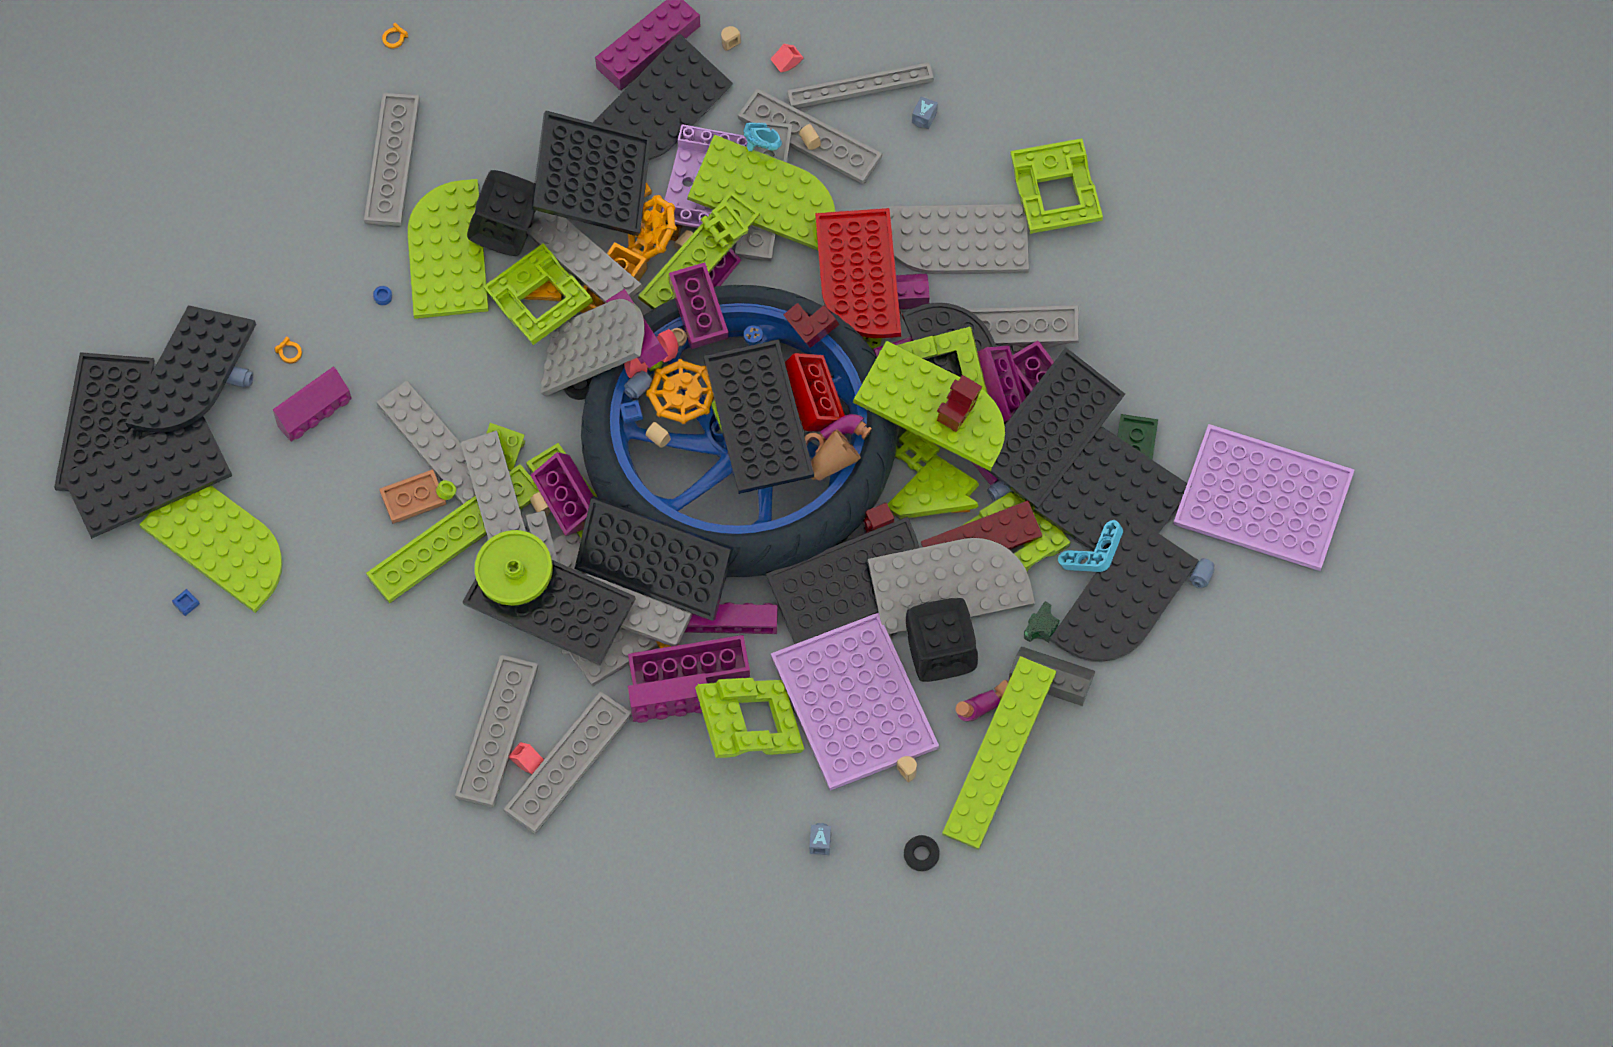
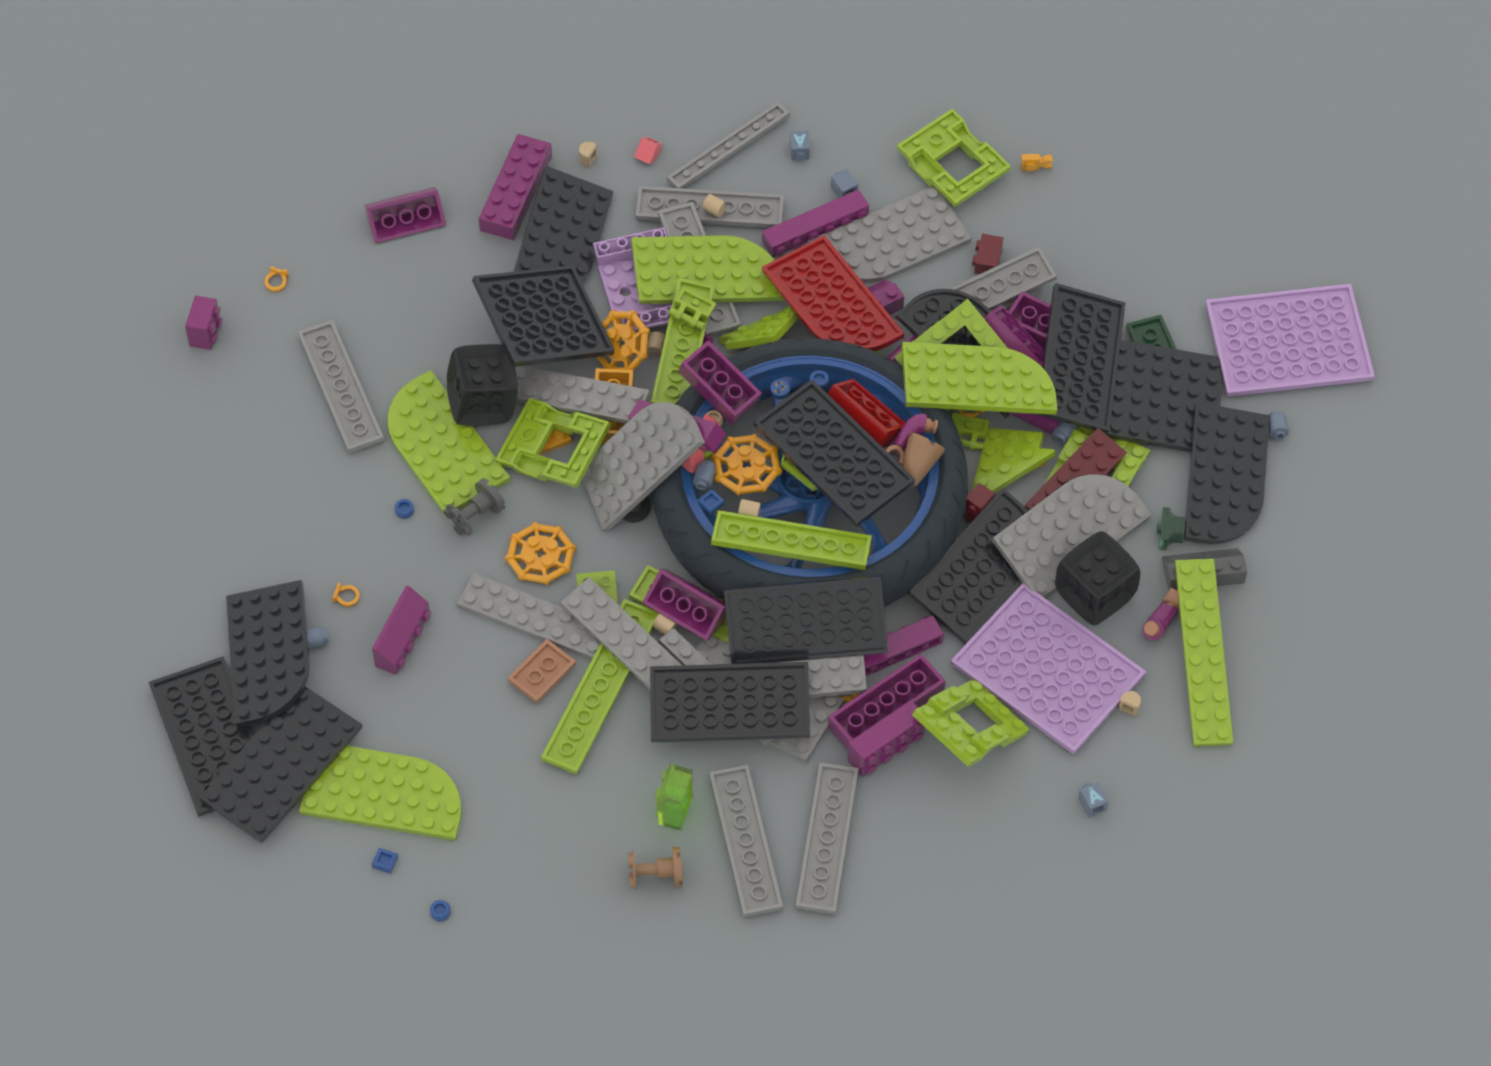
camera: 30 degrees left, 5 degrees down
(206, 668) = (440, 910): none -> blue tile
(305, 49) = (203, 322): none -> magenta brick
(414, 723) = (663, 868): none -> medium nougat piece
(445, 321) = (487, 498): none -> dark grey piece
(446, 490) = (570, 651): lime tile -> none
(452, 663) = (674, 796): none -> clear neon green brick
(470, 380) = (540, 543): none -> light orange plate
(513, 567) = (685, 685): lime dish -> none
(526, 757) = (787, 851): coral brick -> none
(537, 25) = (405, 214): none -> magenta slope
(678, 479) = (791, 540): none -> lime plate
(760, 136) = (671, 222): medium azure piece -> none
(781, 273) = (763, 331): none -> lime wing
(793, 342) = (820, 378): none -> blue tile
(811, 328) = (828, 359): dark red brick -> none
(894, 192) = (814, 223): none -> magenta brick
(918, 841) = (1178, 778): black tyre -> none
(942, 168) = (843, 183): none -> sand blue brick
(960, 403) = (1001, 364): dark red brick -> none
(1034, 291) = (989, 253): none -> dark red brick
(1100, 555) = (1185, 447): medium azure beam -> none
(1130, 222) = (1032, 162): none -> light orange plate

